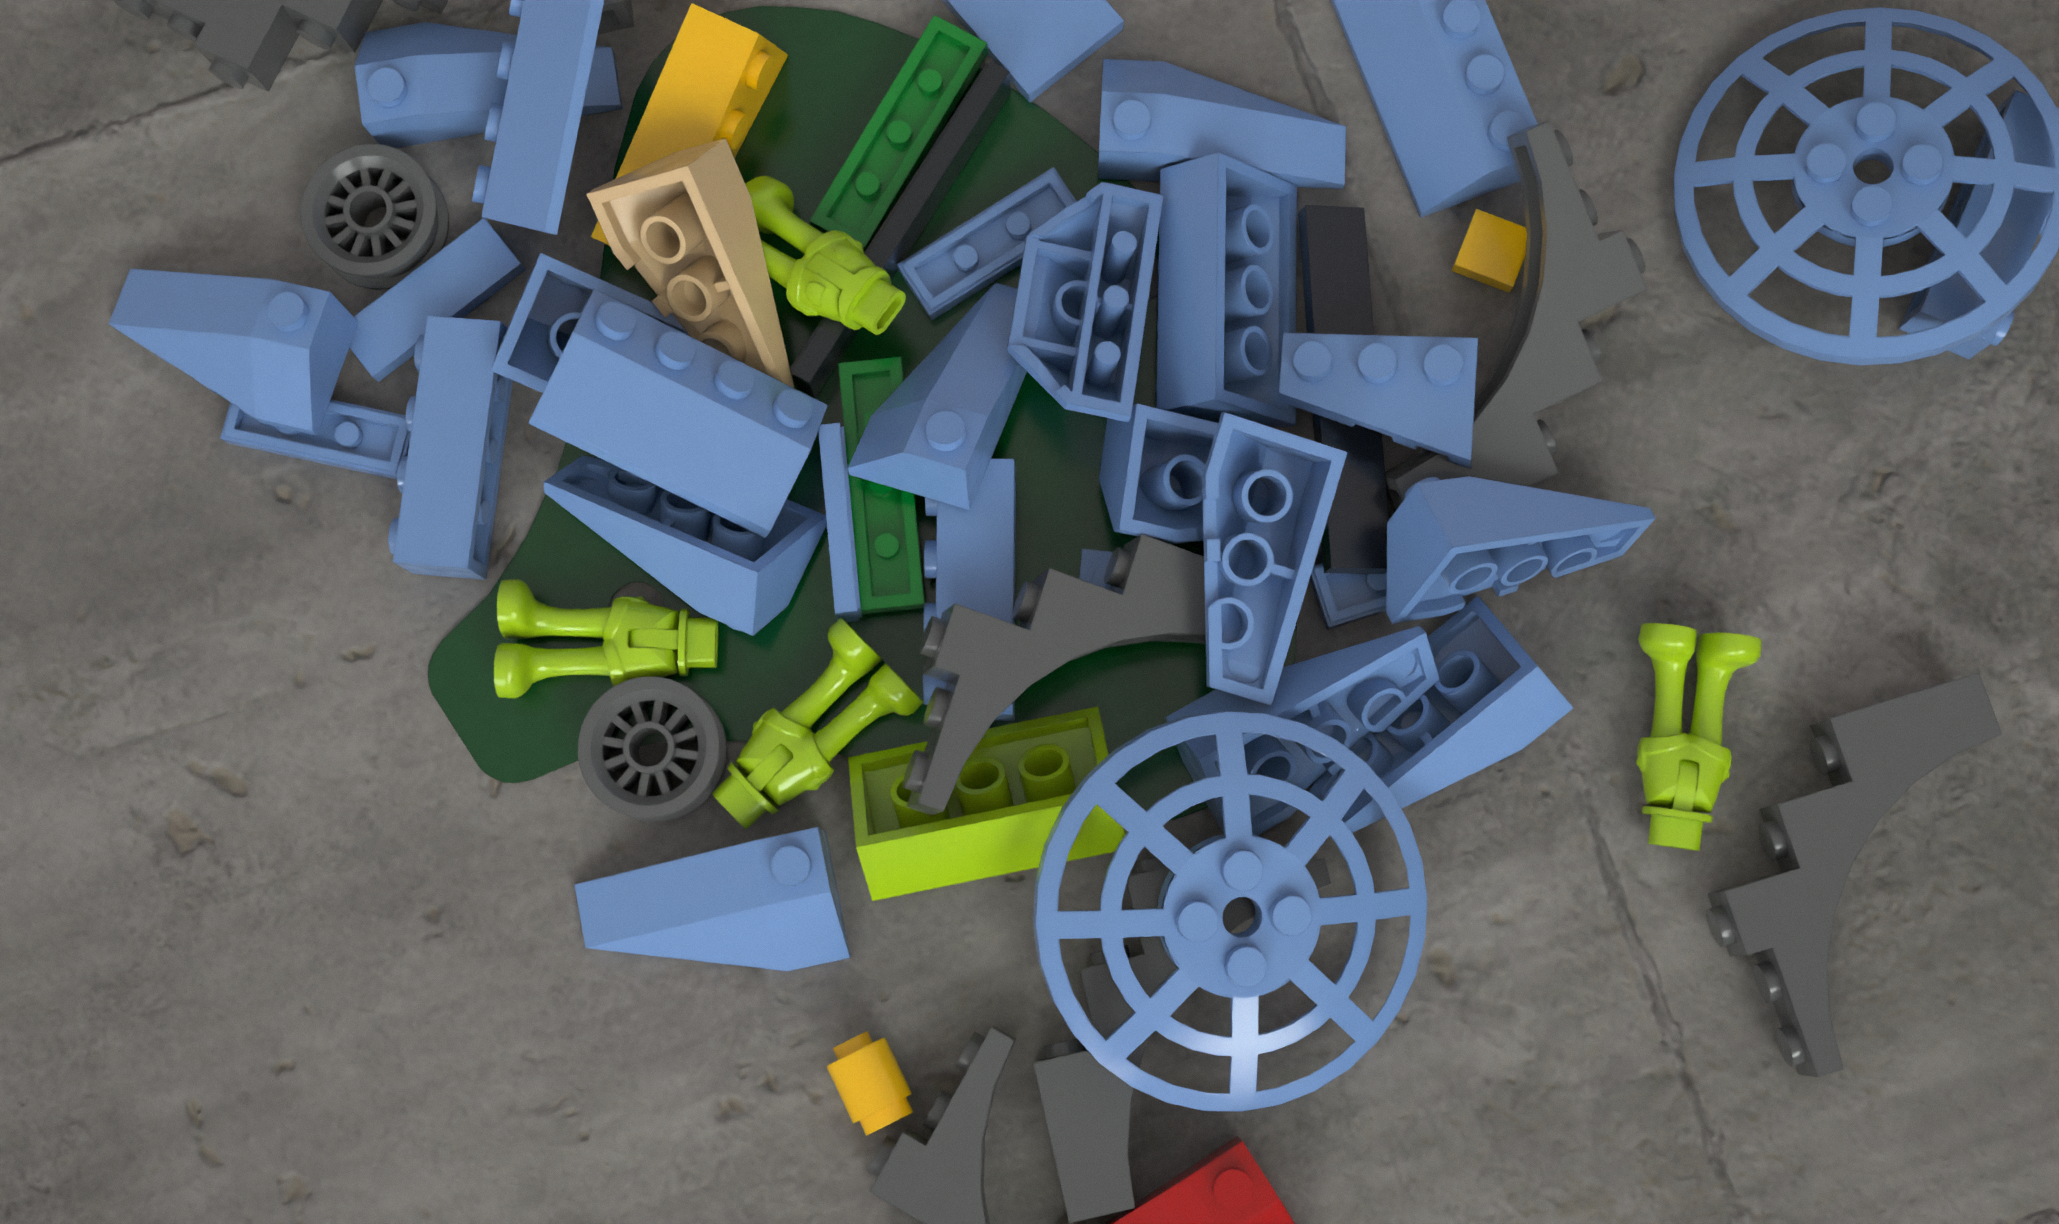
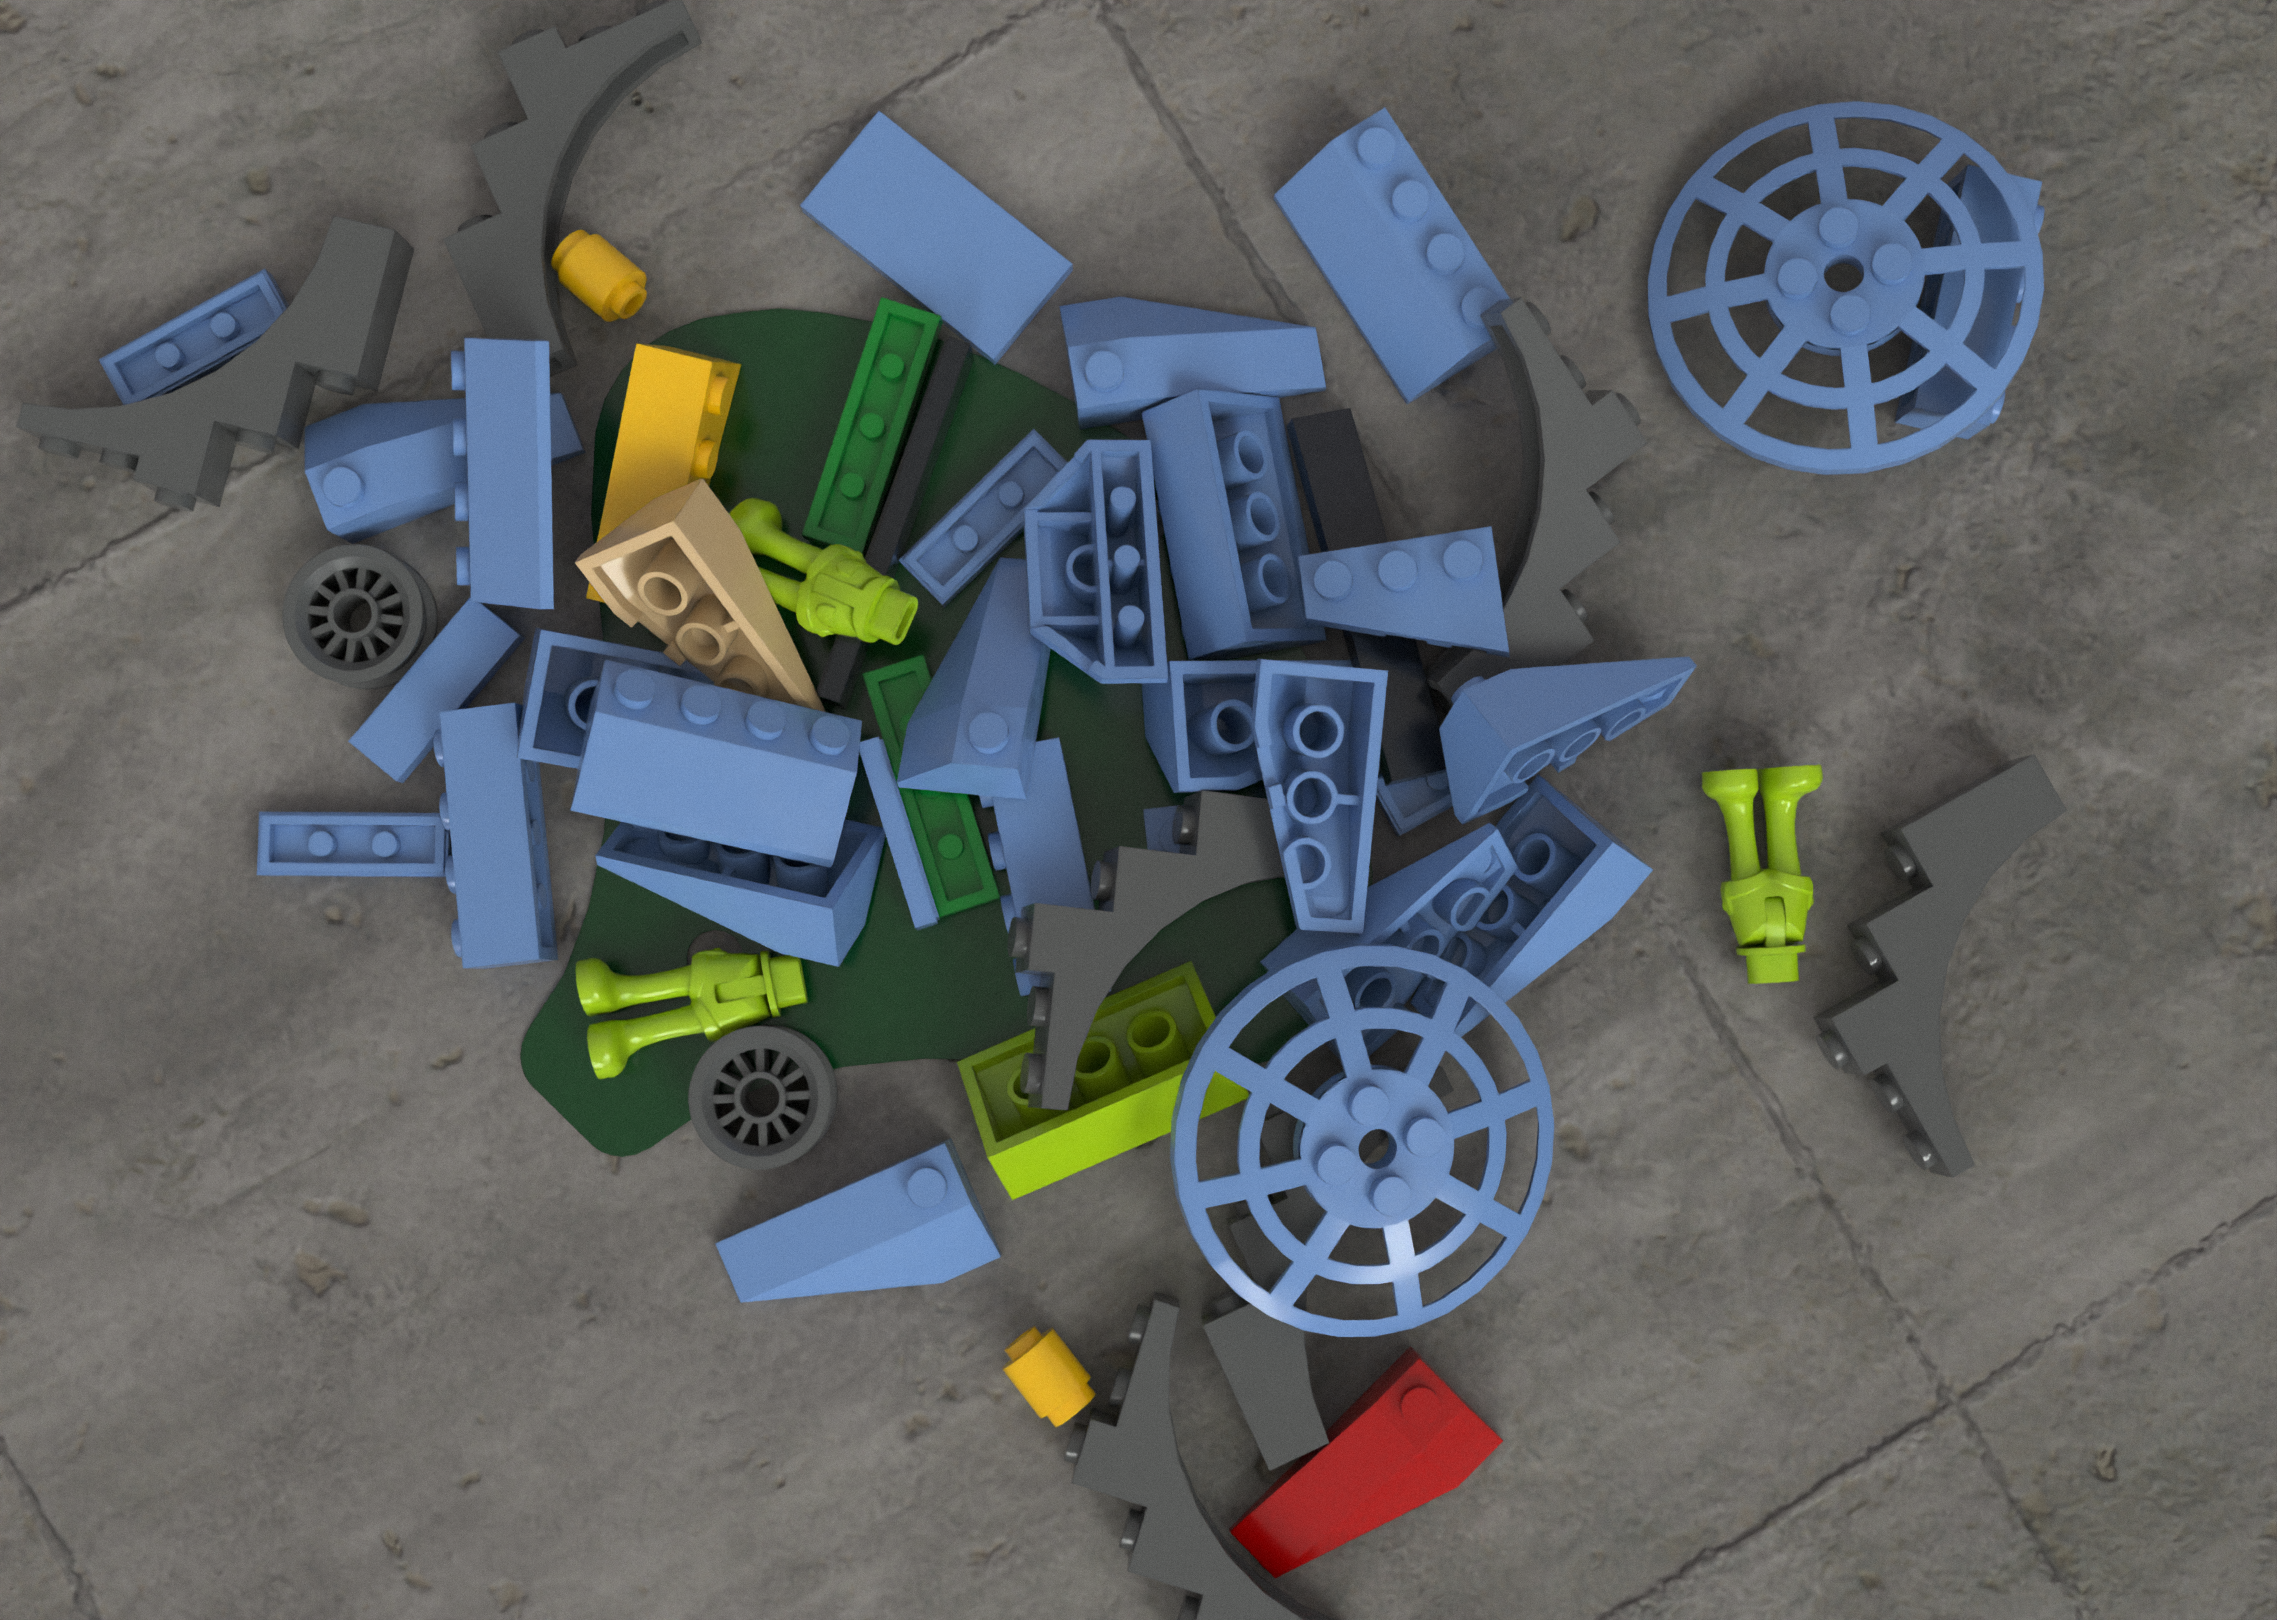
camera: 20 degrees left, 5 degrees up
(246, 338) = (261, 772): medium blue wedge -> none
(784, 752) = (895, 1073): lime piece -> none
(1492, 251) = (1484, 425): yellow tile -> none

